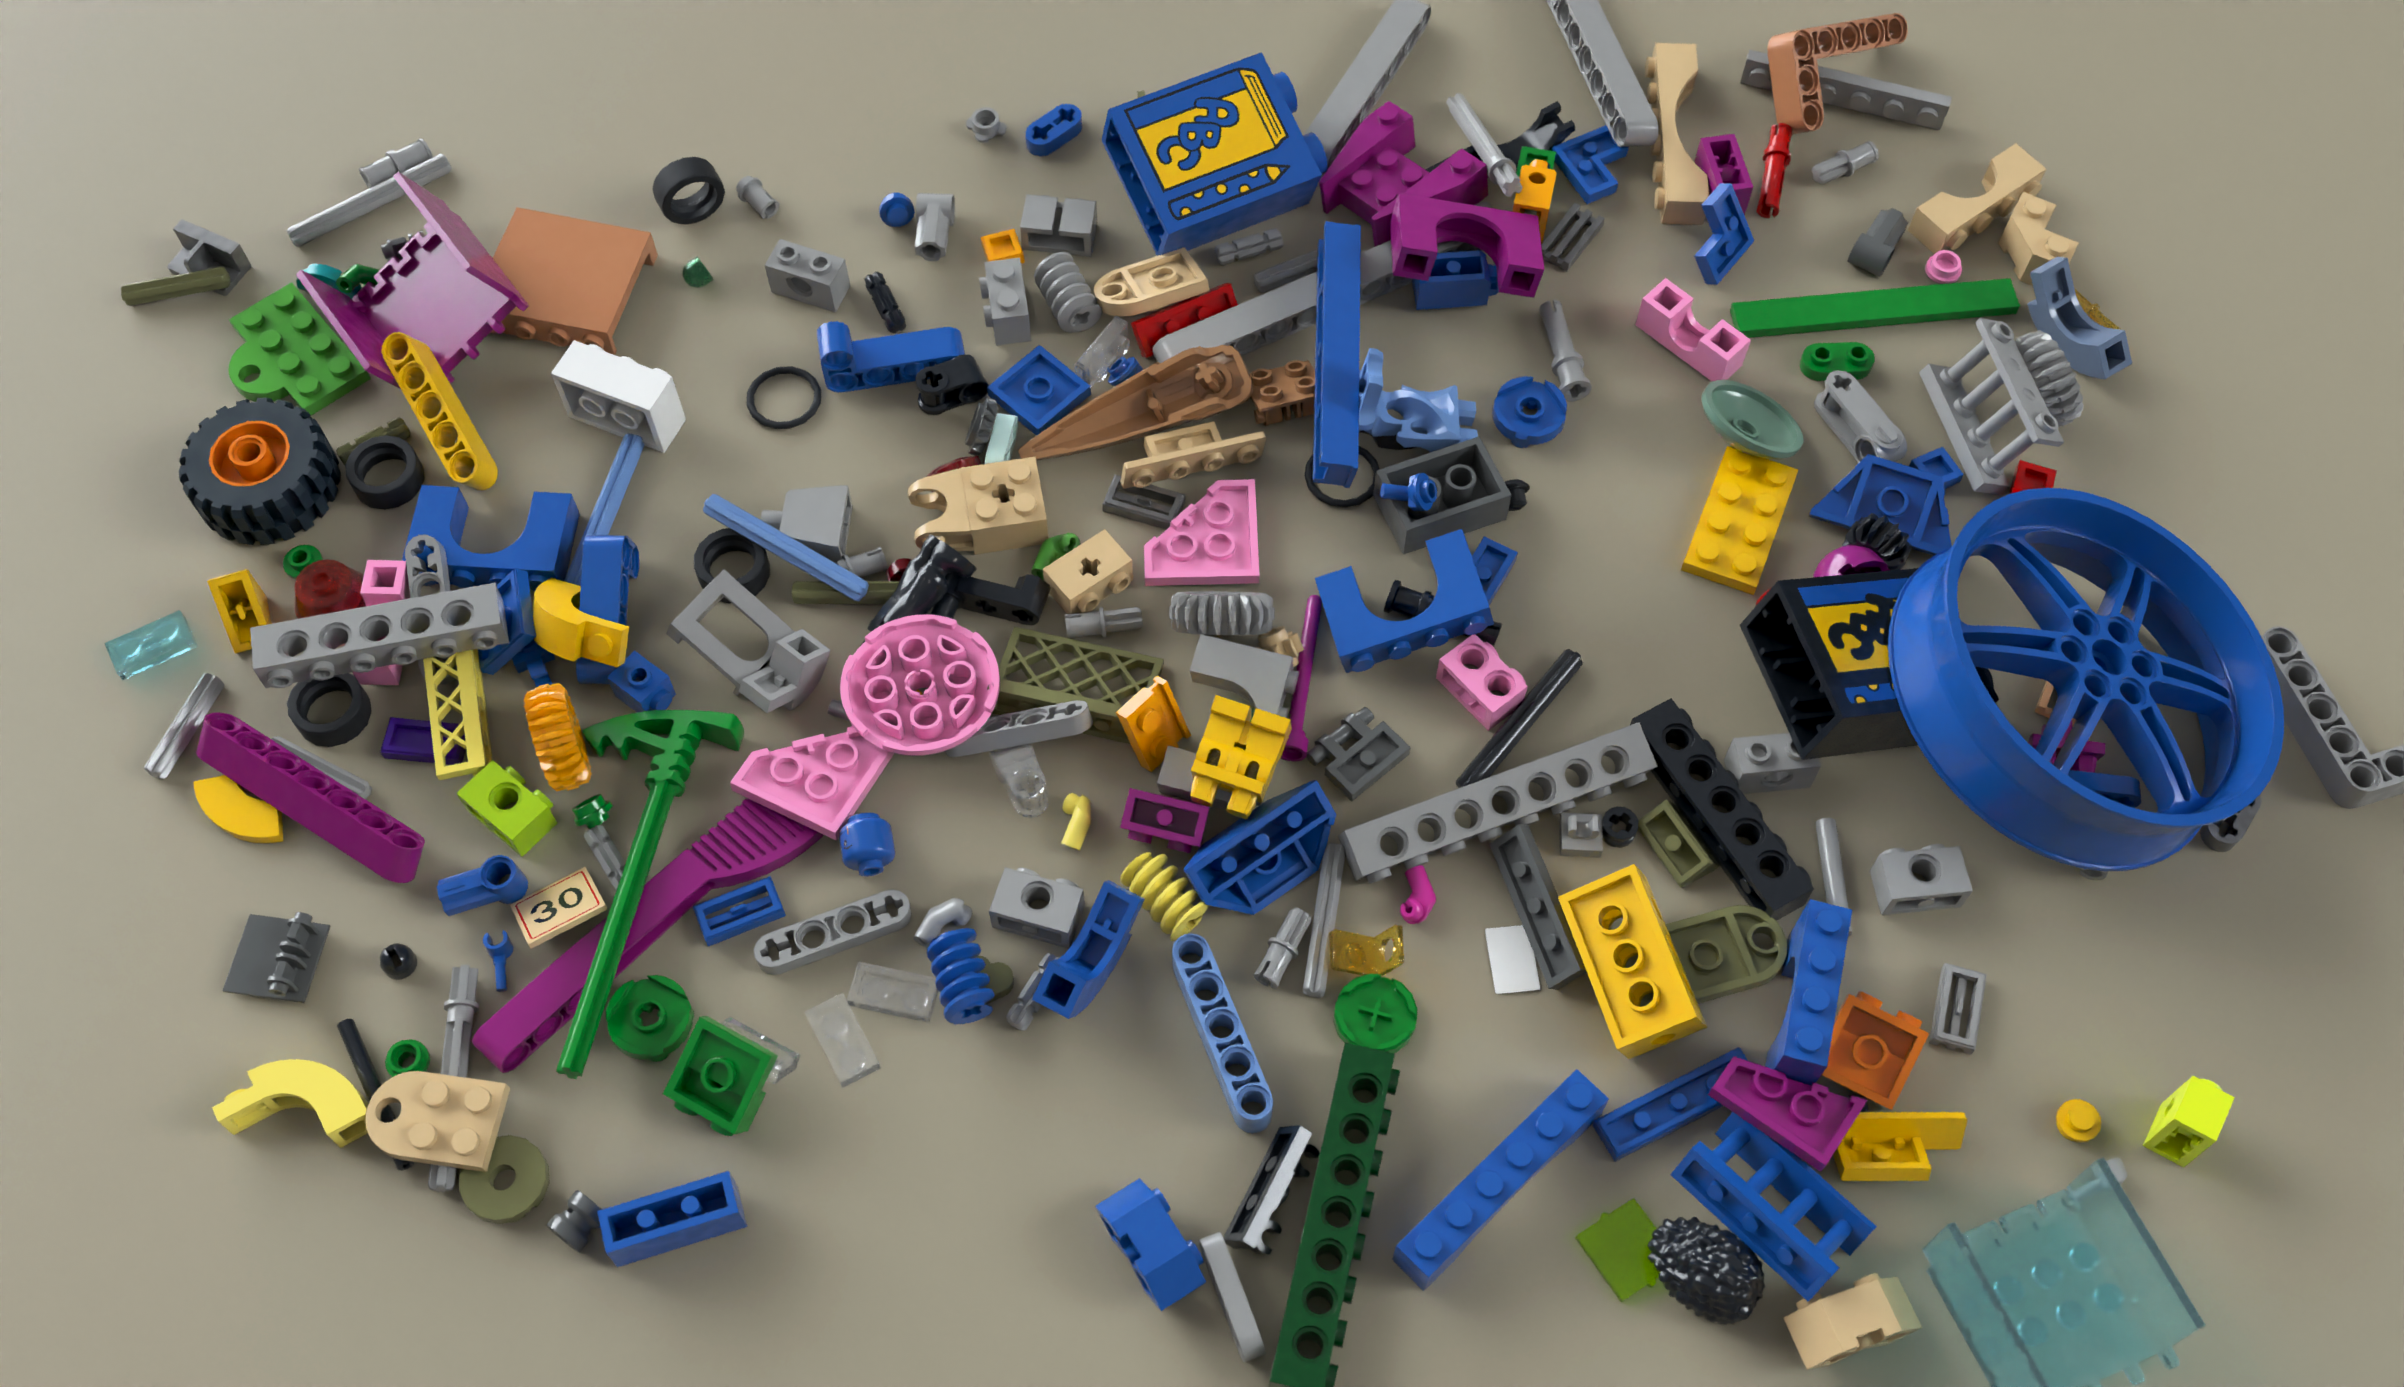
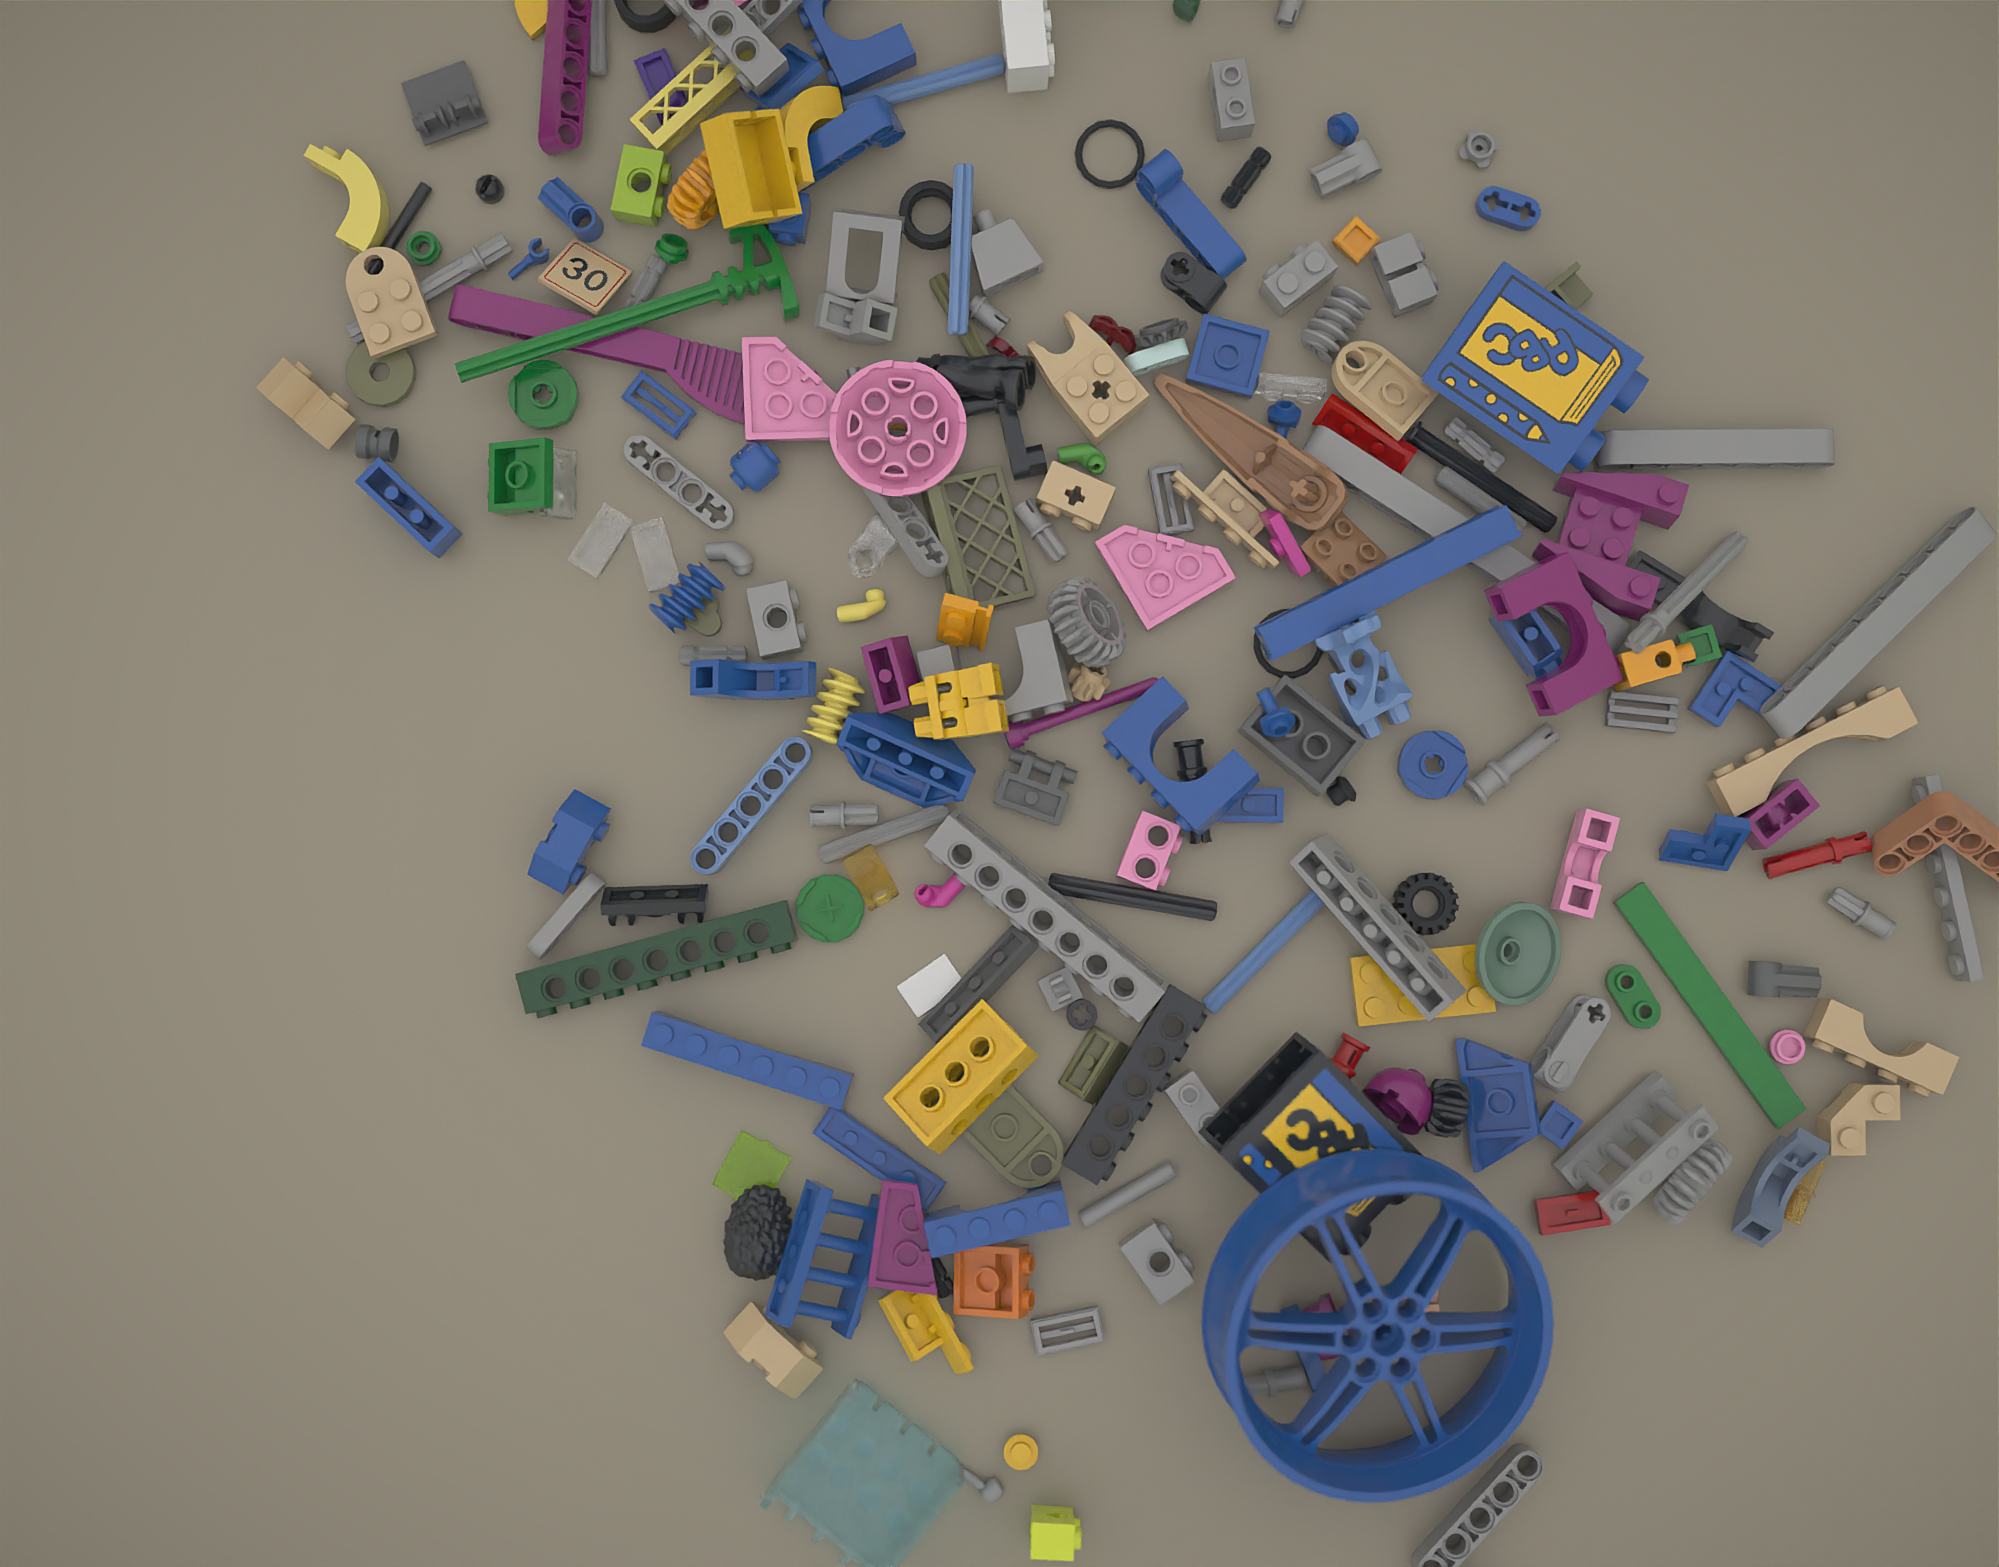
camera: 60 degrees right, 25 degrees up
(456, 1281) = (306, 403): none -> tan brick
(575, 664) = (751, 168): none -> yellow piece
(1245, 419) = (1283, 542): none -> dark pink plate
(1246, 268) = (1481, 478): none -> black axle
(1635, 626) = (1263, 952): none -> medium blue axle
(1666, 460) = (1446, 902): none -> black tyre
(1668, 512) = (1377, 926): none -> light grey brick

